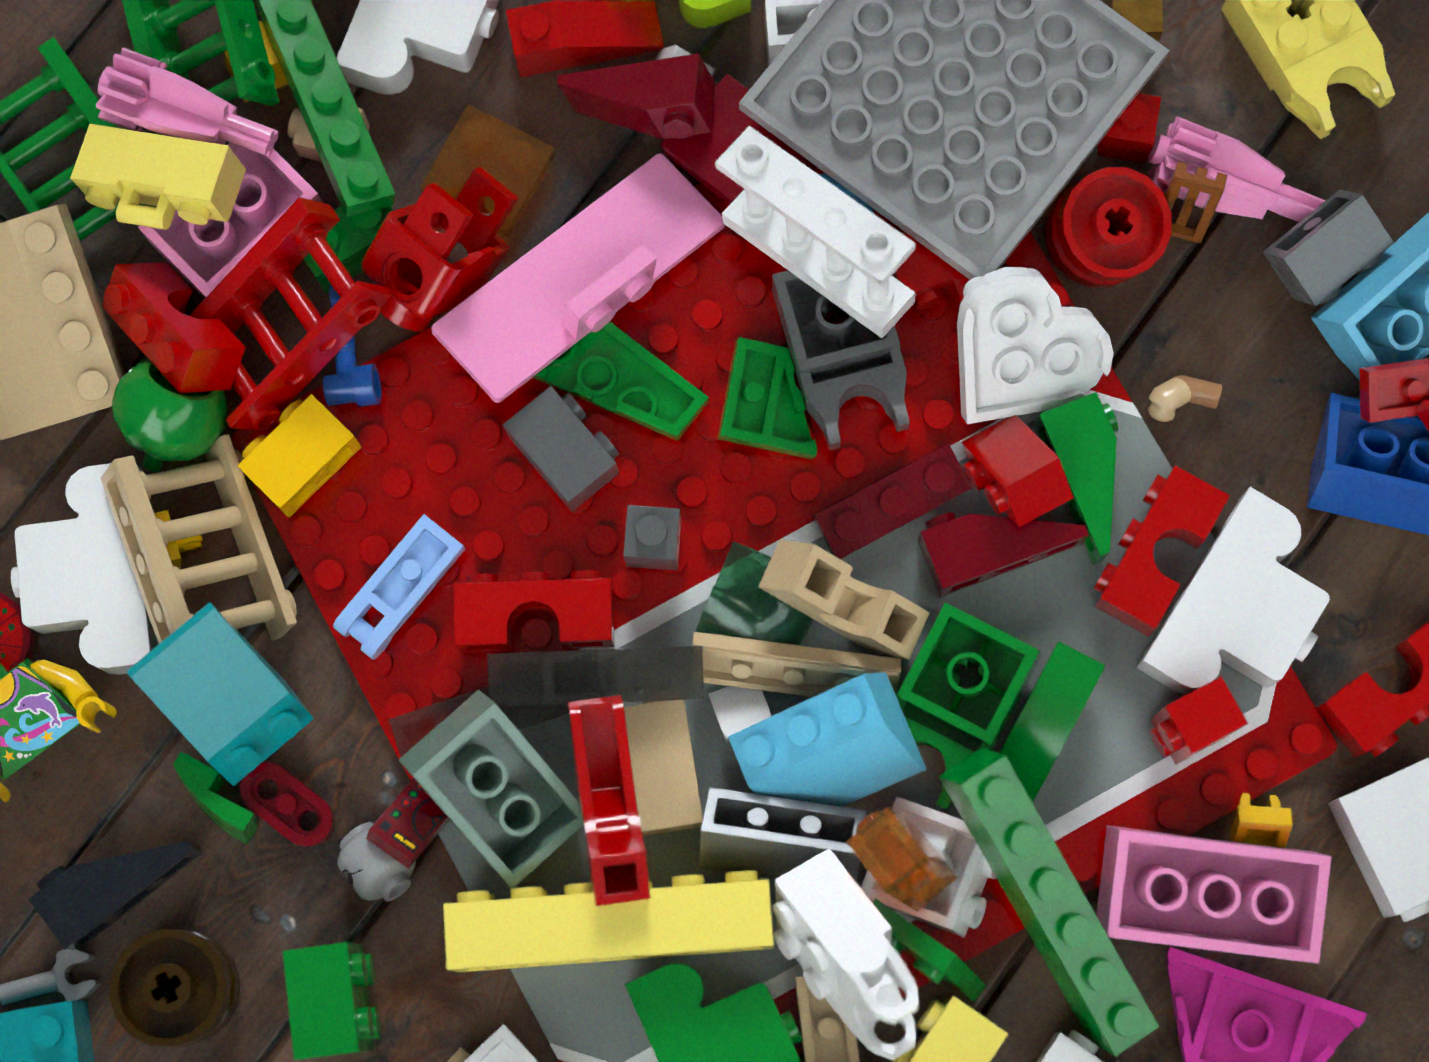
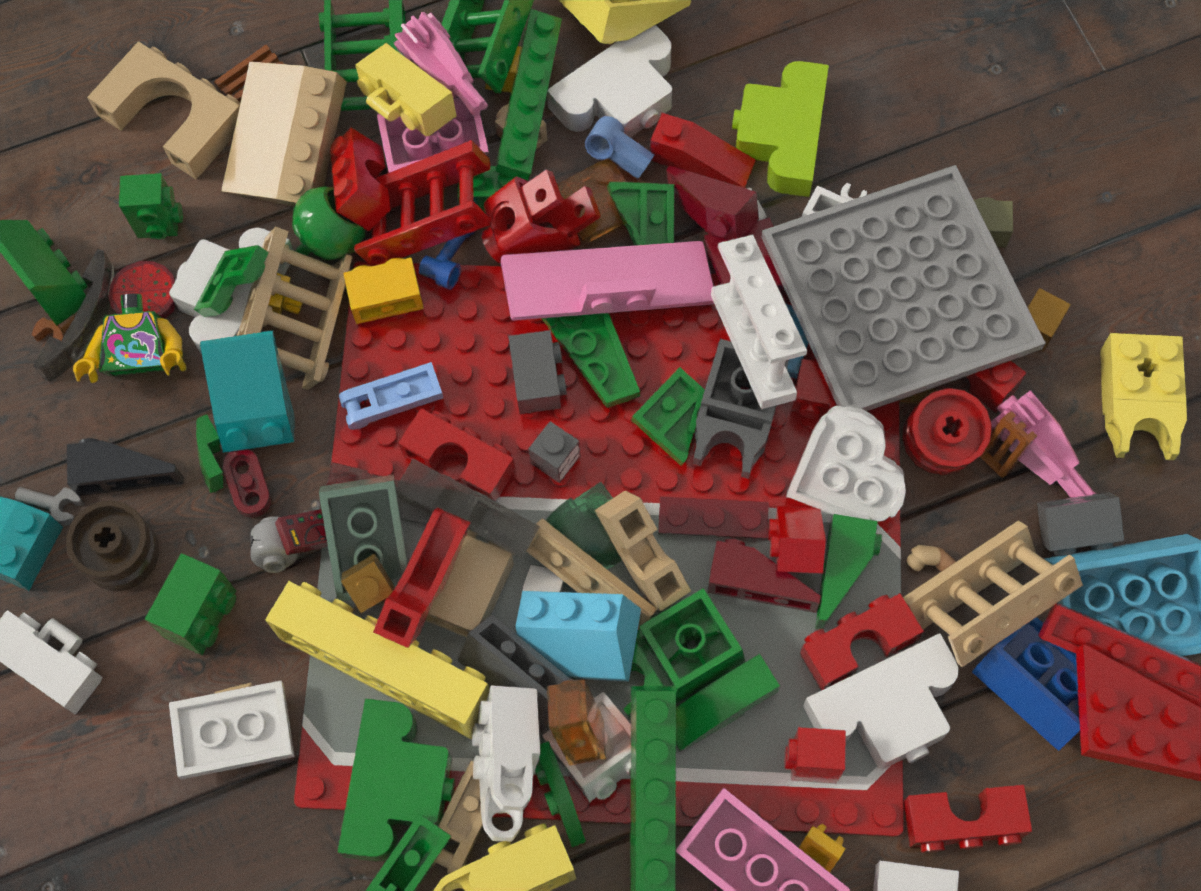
camera: 30 degrees right, 10 degrees down
(90, 551) = (233, 269): none -> green plate
(460, 88) = (610, 142): none -> medium blue piece
(541, 846) = (367, 583): none -> pearl gold brick
(565, 155) = (645, 210): none -> green wing
(1246, 372) = (977, 571): none -> tan fence

